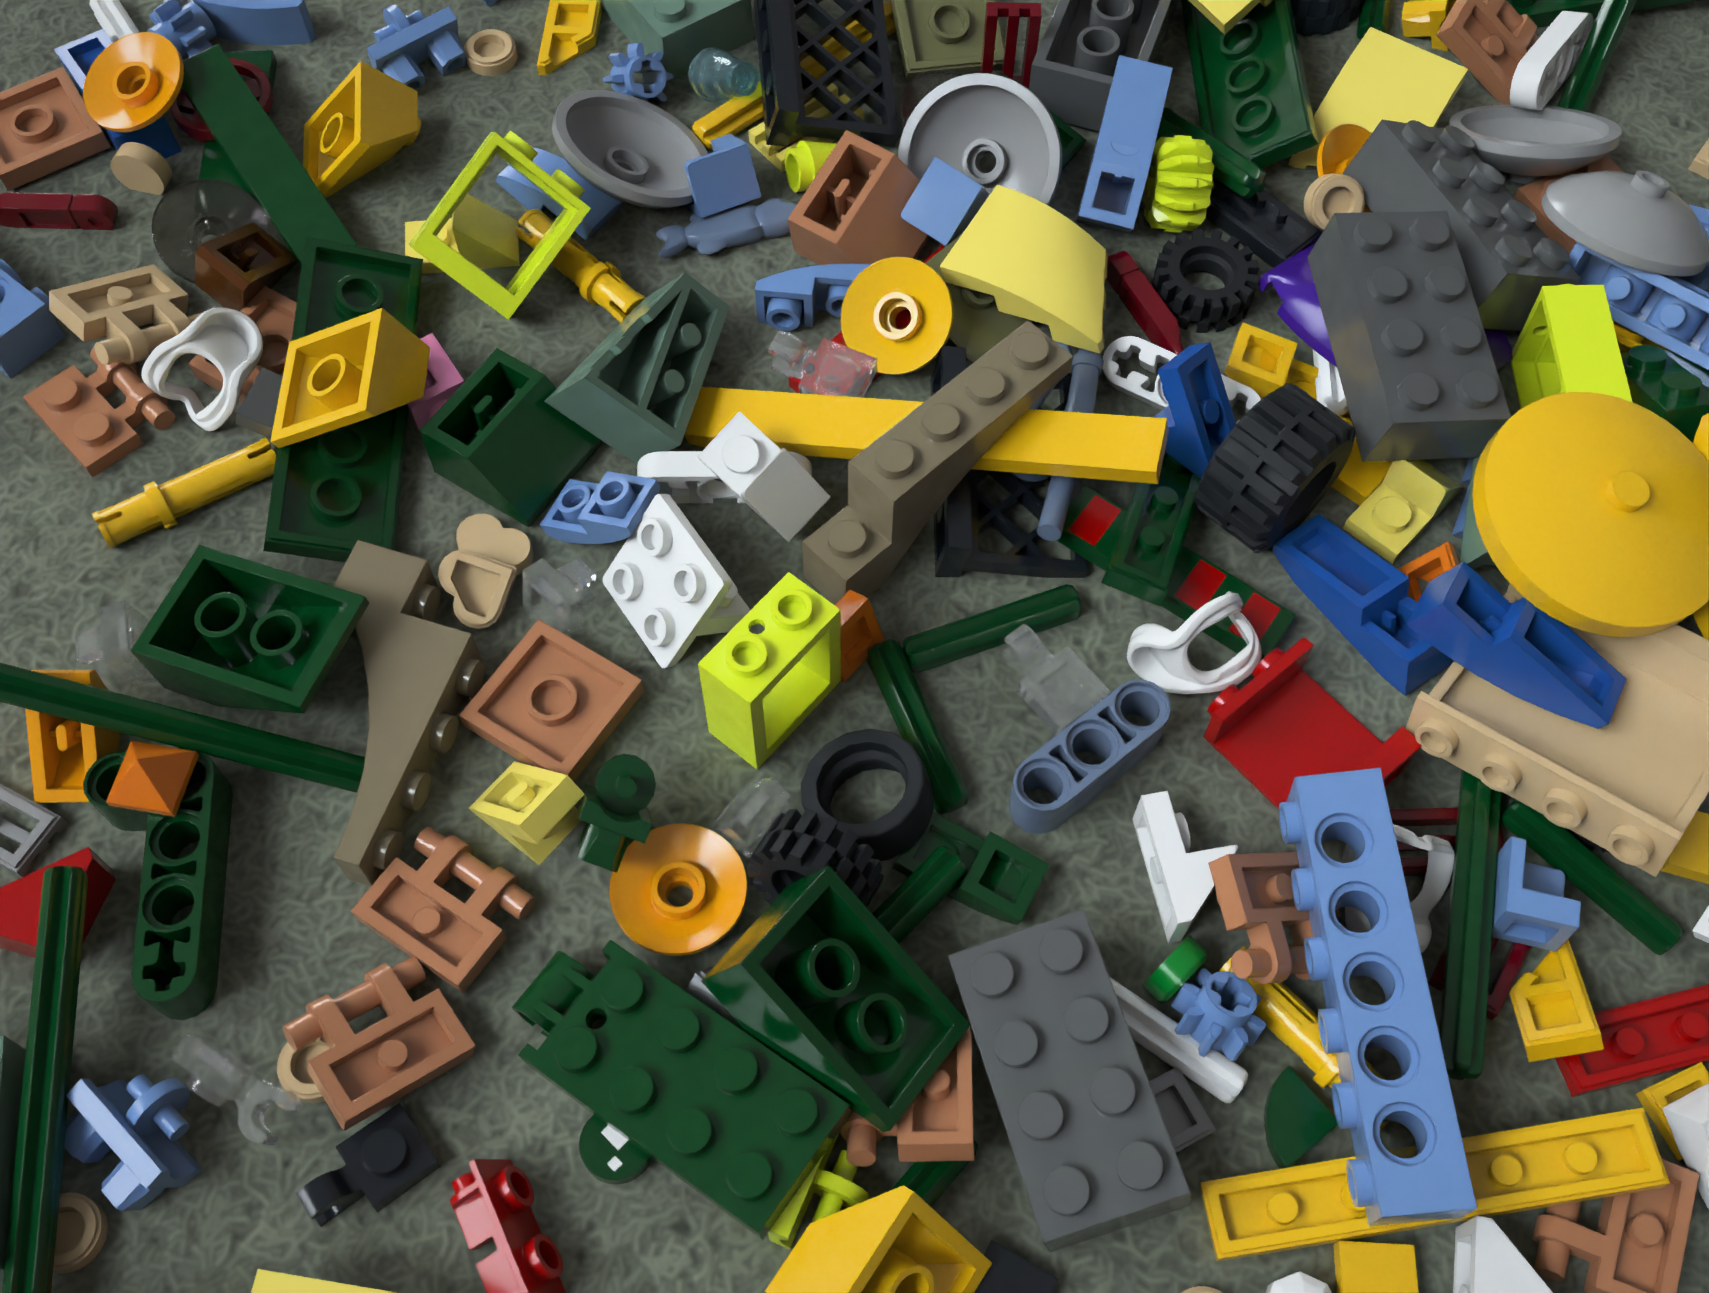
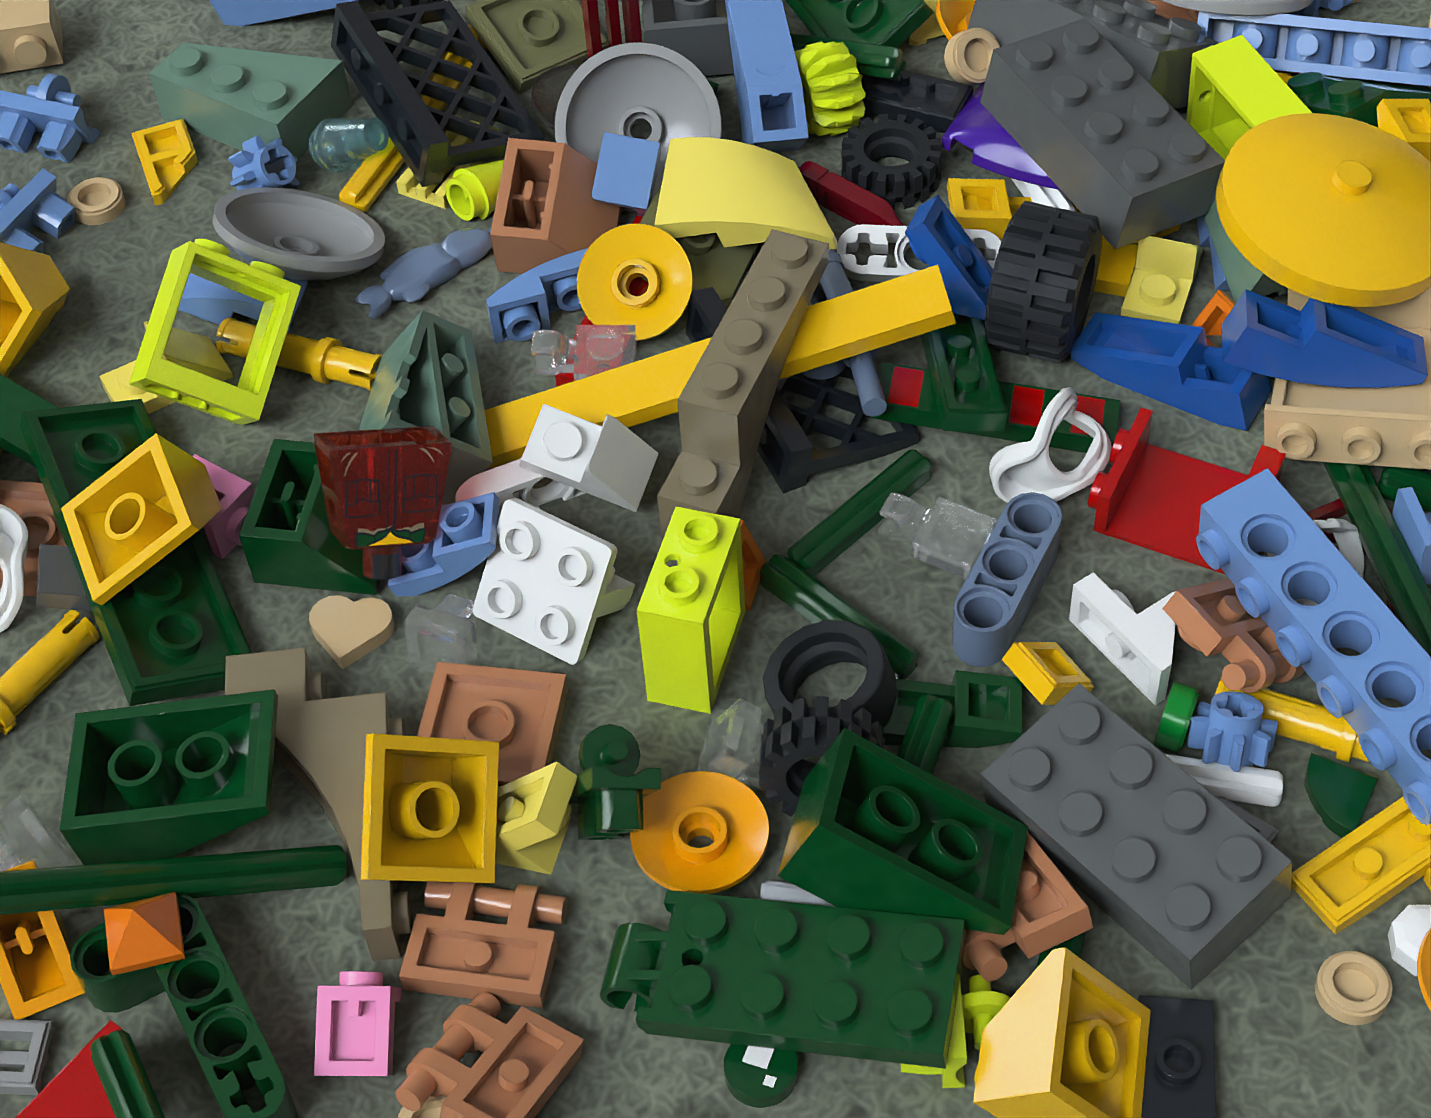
camera: 20 degrees left, 10 degrees down
(294, 939) = (355, 1026): none -> bright pink bracket
(435, 769) = (429, 809): none -> yellow slope
(478, 586) = (358, 657): tan tile -> none
(554, 439) = (383, 490): none -> clear red torso
(722, 177) = (400, 225): medium blue panel -> none
(1078, 869) = (1045, 670): none -> yellow tile

